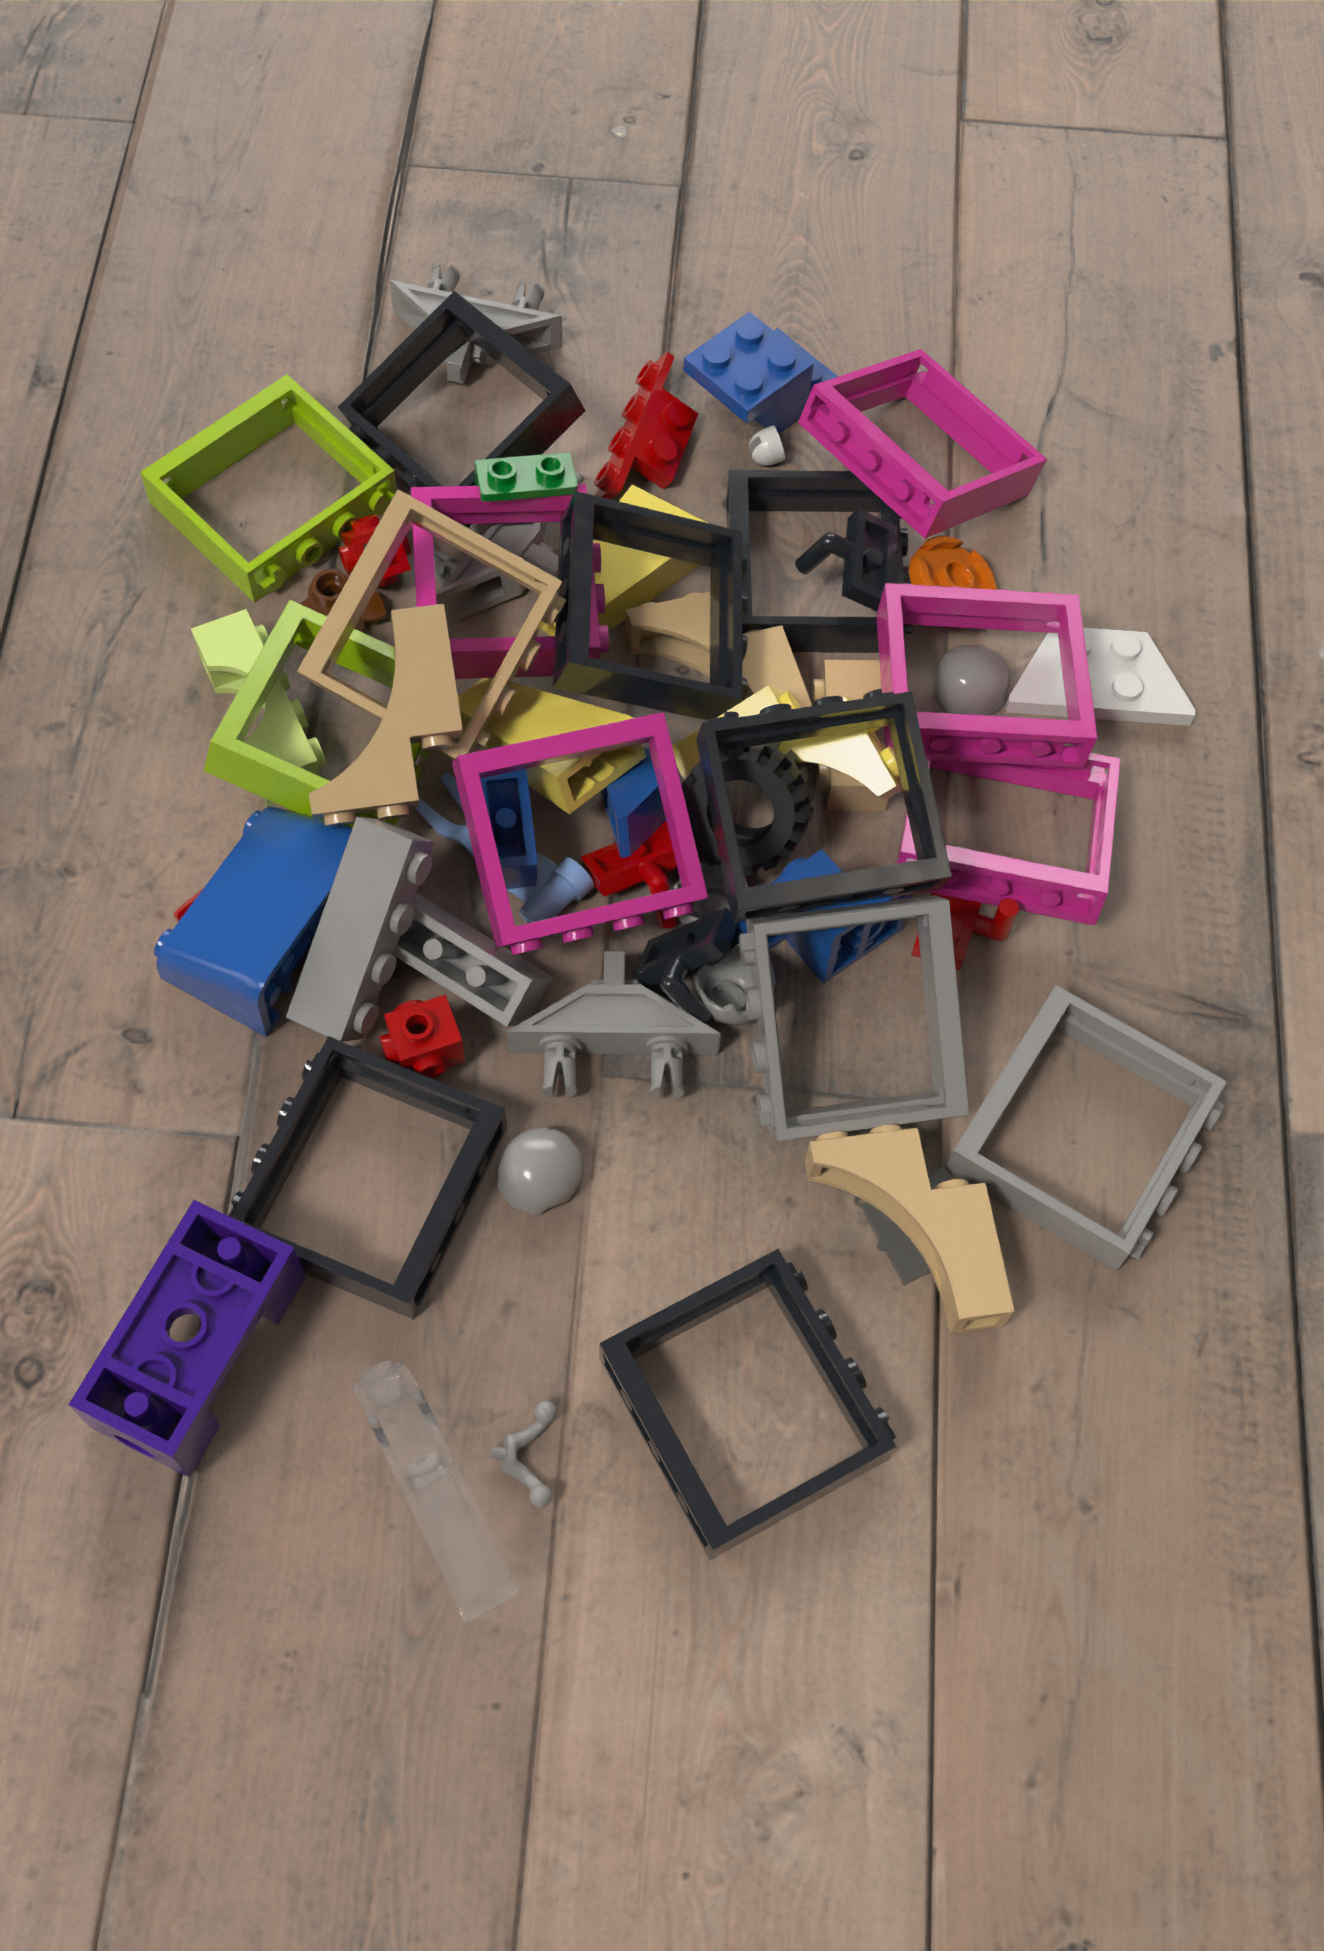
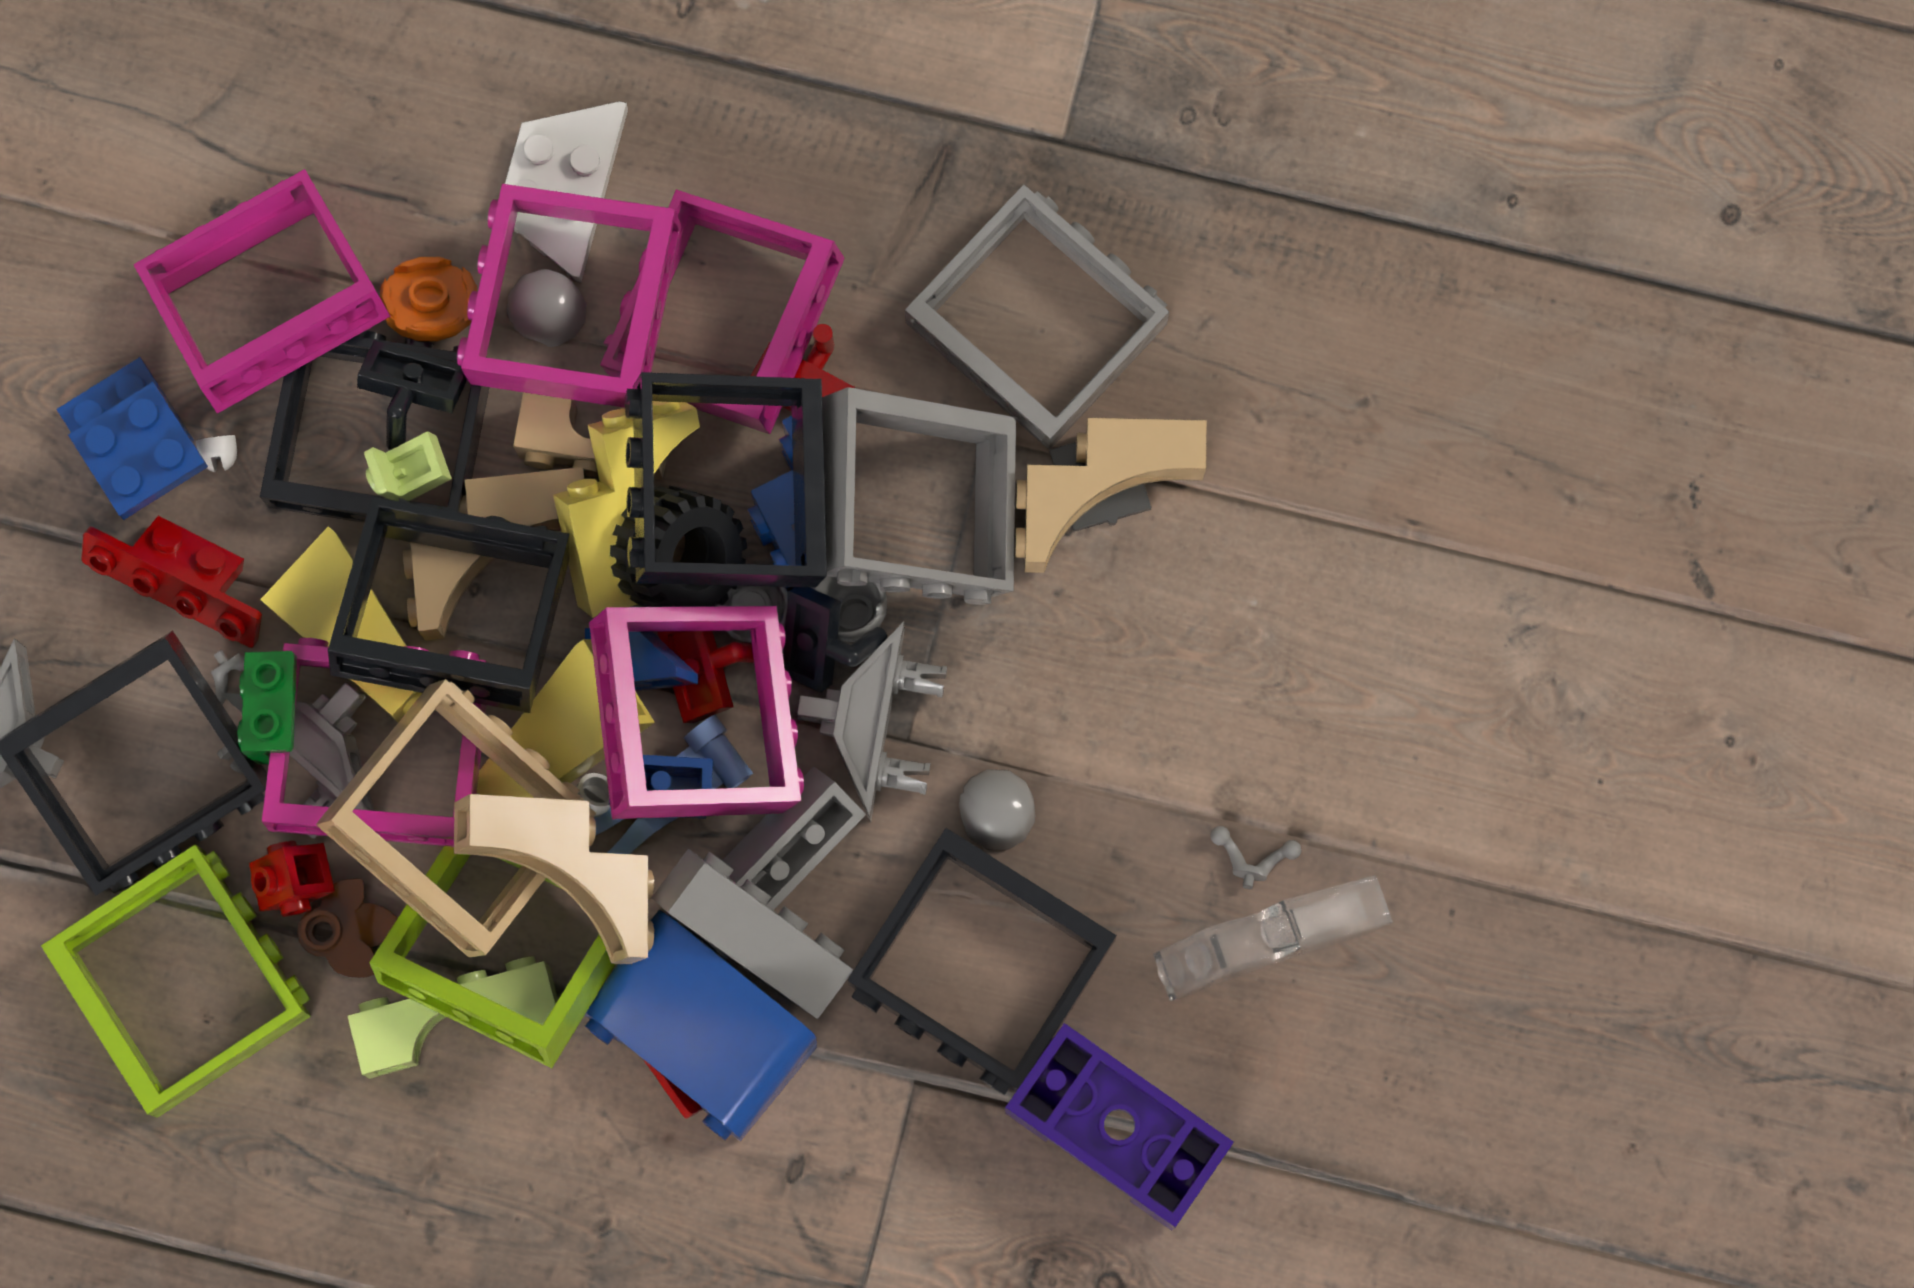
camera: 75 degrees left, 15 degrees up
(423, 1037) = (853, 878): red brick -> none
(777, 569) = (407, 469): none -> yellowish green bracket
(815, 1334) = (1231, 579): black window -> none

